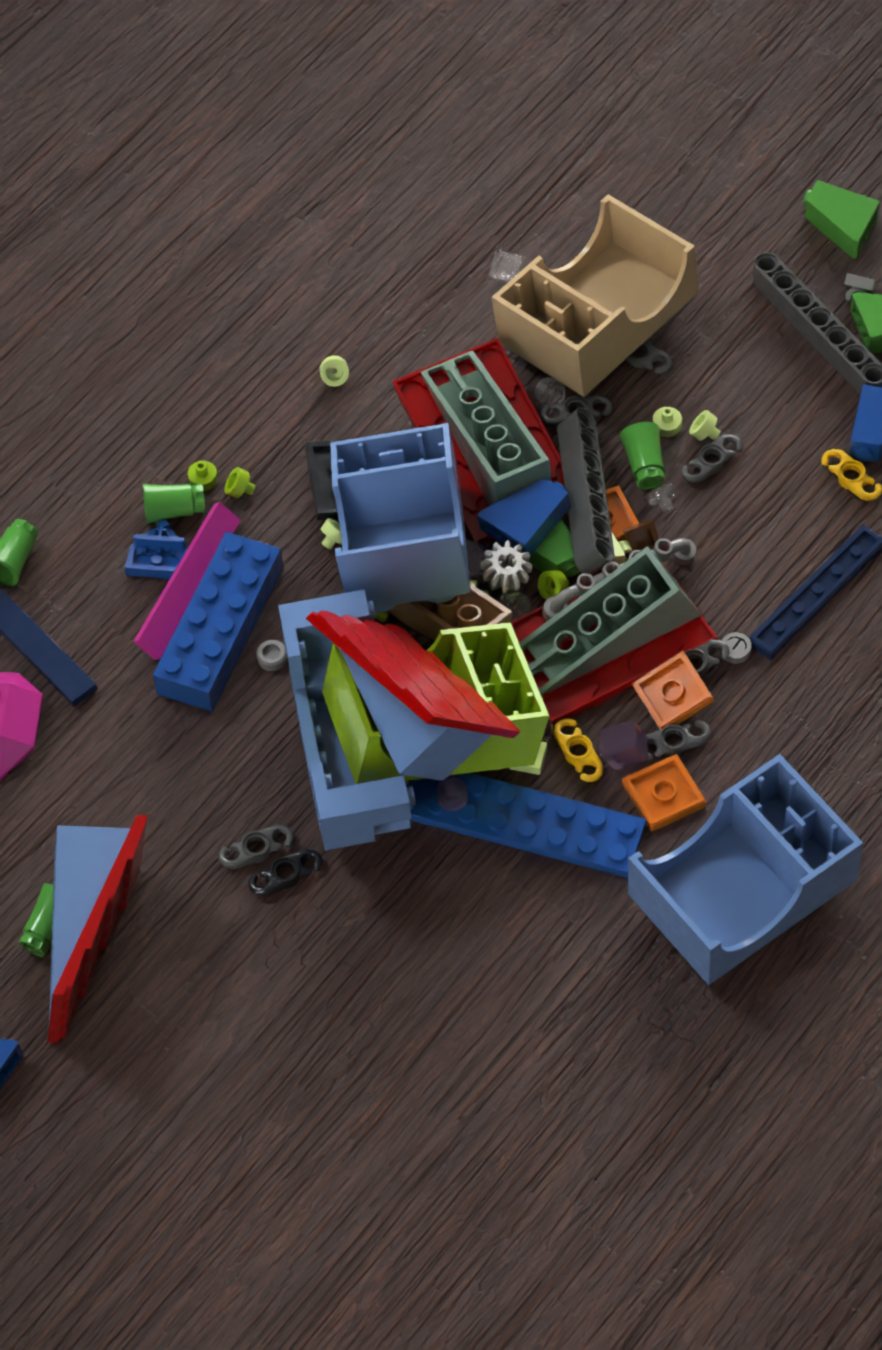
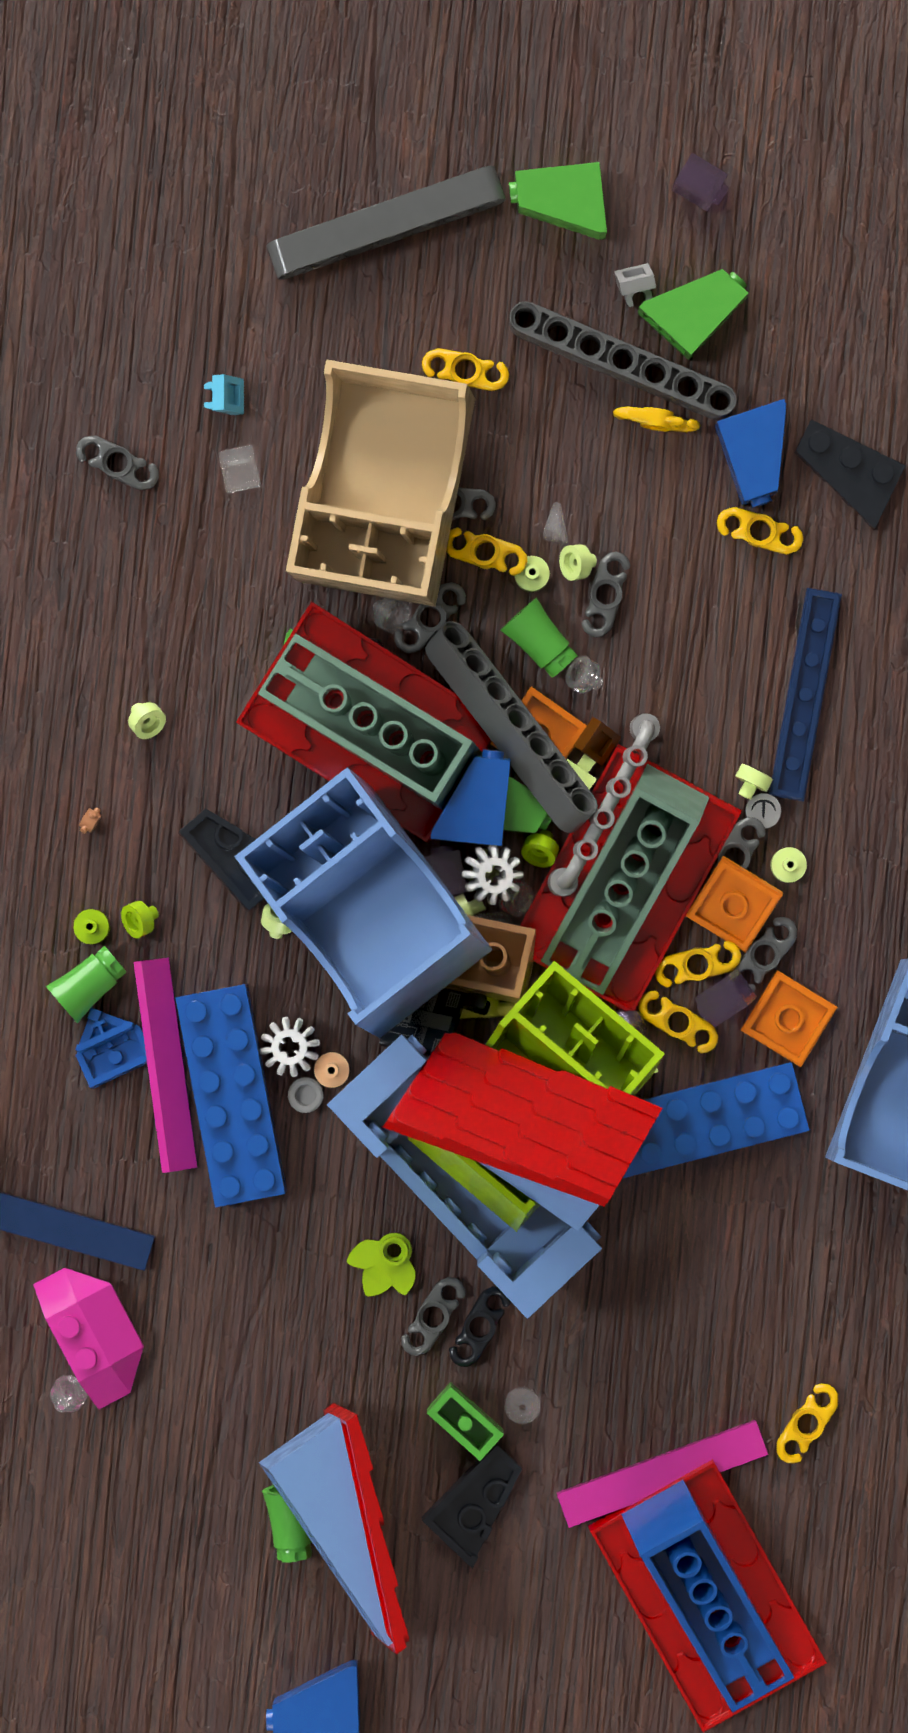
camera: 35 degrees left, 30 degrees up
(192, 988) = (472, 1503): none -> black wing
(226, 921) = (465, 1421): none -> bright green brick
(242, 792) = (382, 1269): none -> lime plate
(251, 412) = (90, 820): none -> nougat piece
(269, 611) = (283, 1056): none -> white gear
(277, 944) = (518, 1397): none -> clear tile
(322, 1159) = (707, 1595): none -> piece
(350, 1052) = (643, 1478): none -> dark pink tile
(430, 232) = (128, 475): none -> dark grey piece
(476, 1089) = (792, 1432): none -> yellow piece
(529, 217) = (226, 394): none -> medium azure tile
(609, 710) = (714, 968): none -> yellow piece
(631, 386) = (502, 549): none -> yellow piece
(703, 395) = (555, 526): none -> clear slope
(708, 175) = (386, 222): none -> dark grey beam
(710, 292) = (452, 358): none -> yellow piece
(732, 692) = (782, 871): none -> yellowish green tile
(741, 620) = (752, 780): none -> yellowish green tile
(820, 371) = (656, 419): none -> yellow piece

